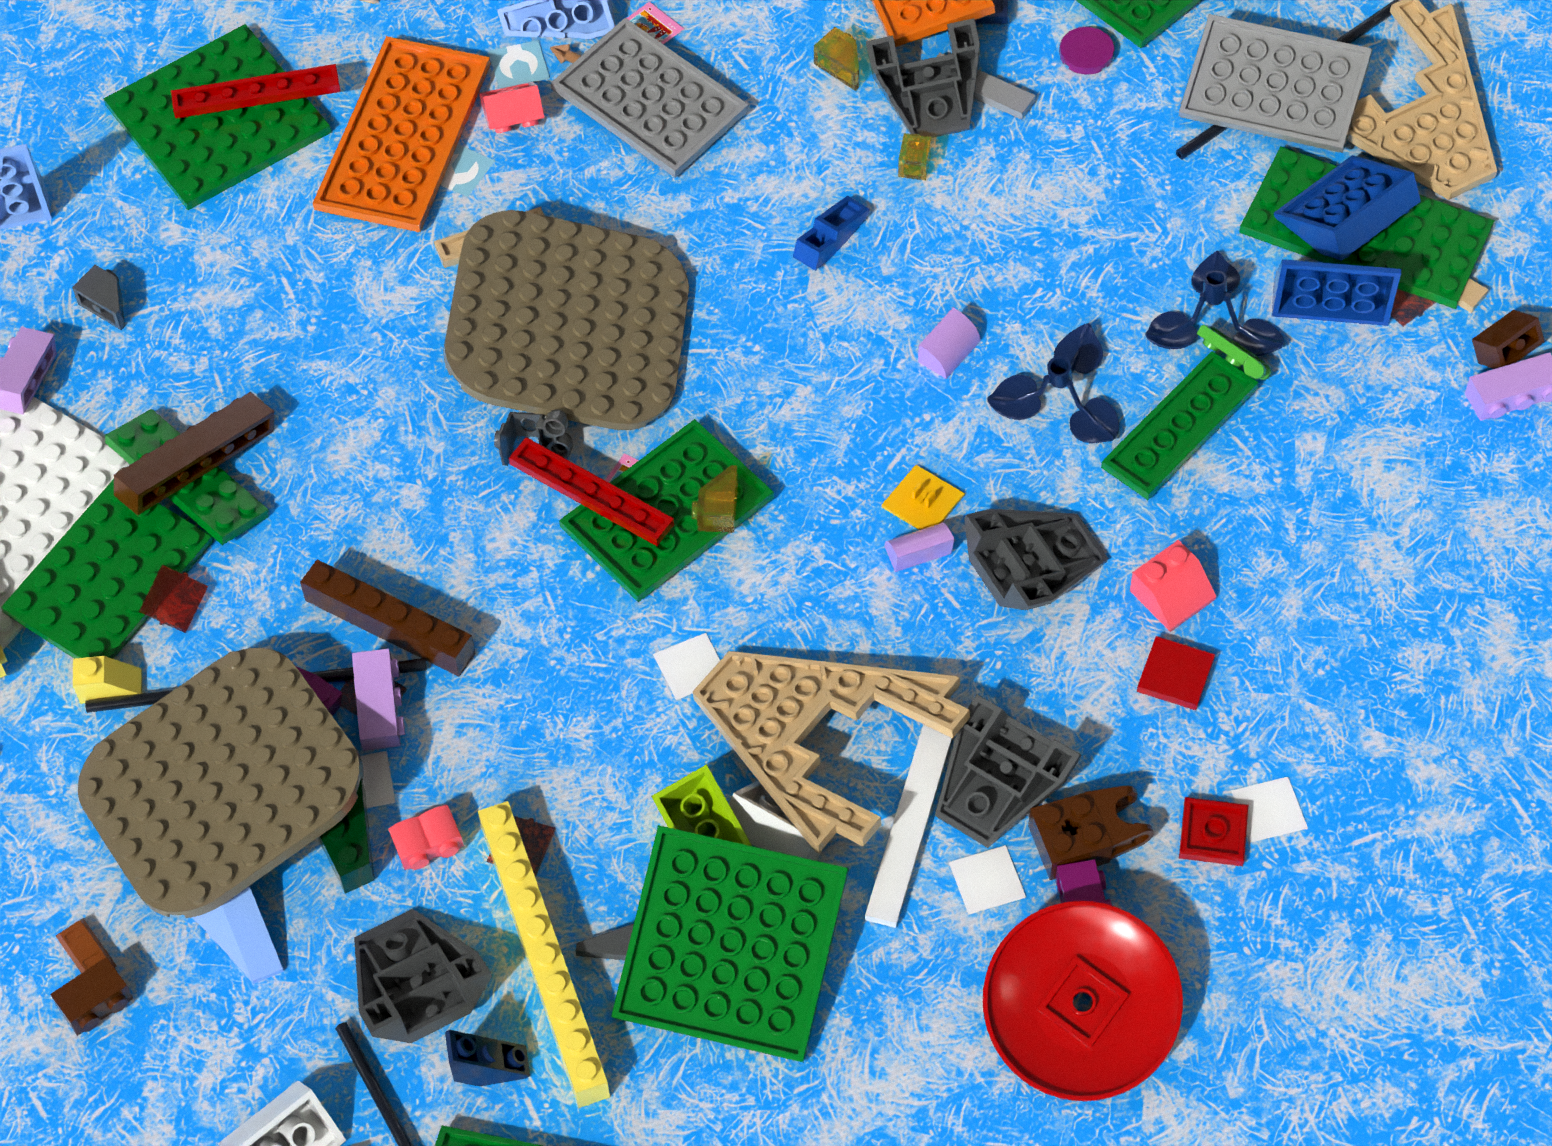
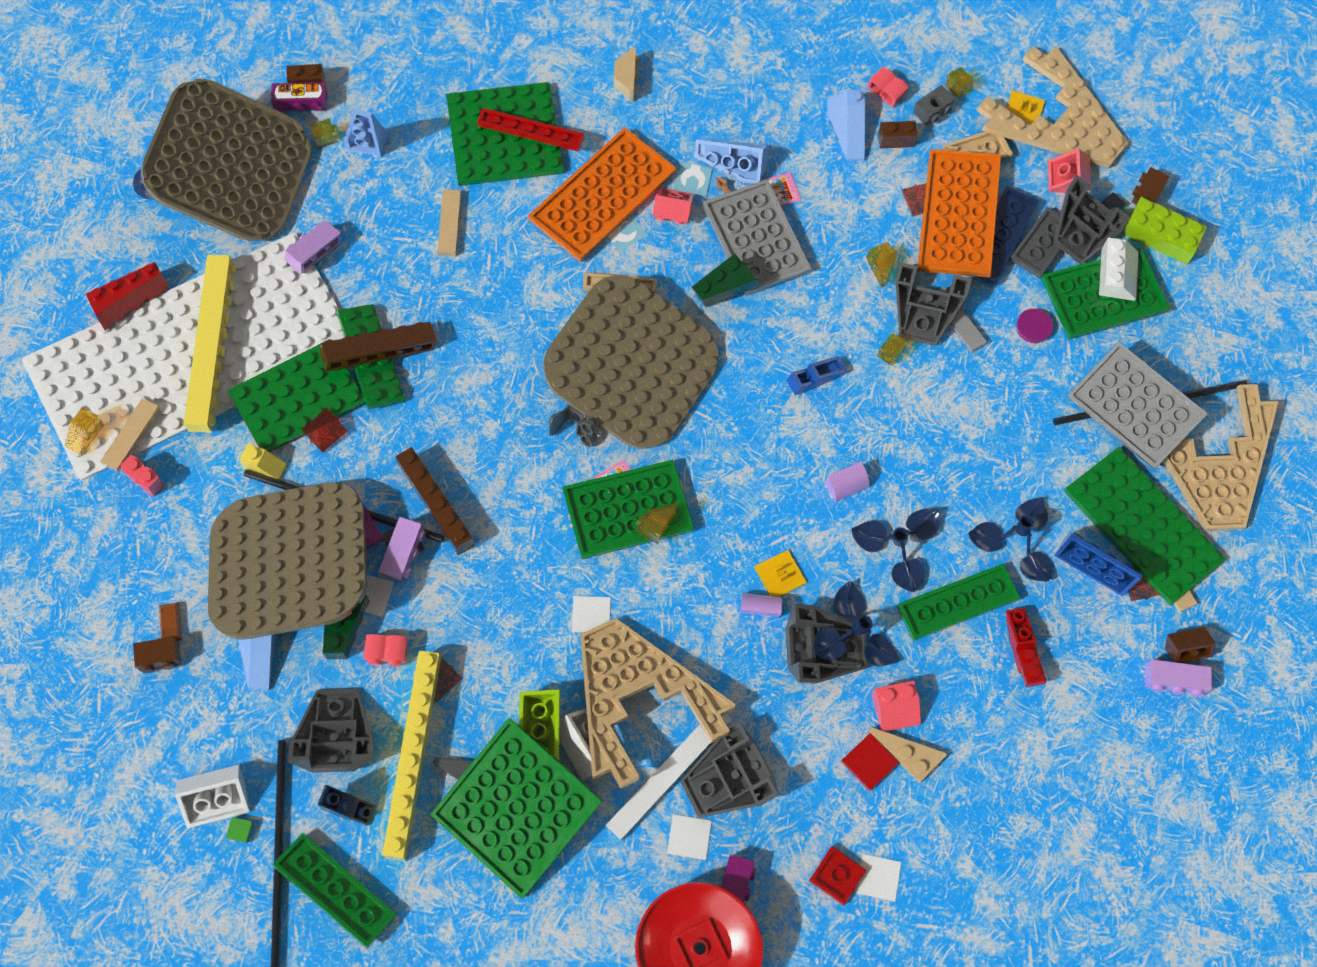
camera: 20 degrees right, 10 degrees up
(101, 295) = (382, 219): dark grey slope -> none
(202, 260) = (449, 222): none -> tan tile
(591, 491) = (588, 479): red plate -> none
(640, 166) = (725, 281): none -> dark green wedge
(1042, 549) = (830, 645): none -> dark blue plant
(1086, 828) = (768, 838): reddish brown brick -> none
(1231, 640) = (912, 756): none -> tan wing
(1235, 352) = (1017, 571): bright green hinge -> none
(1296, 441) = (1023, 647): none -> red slope
(1350, 206) = (1138, 509): blue slope -> none

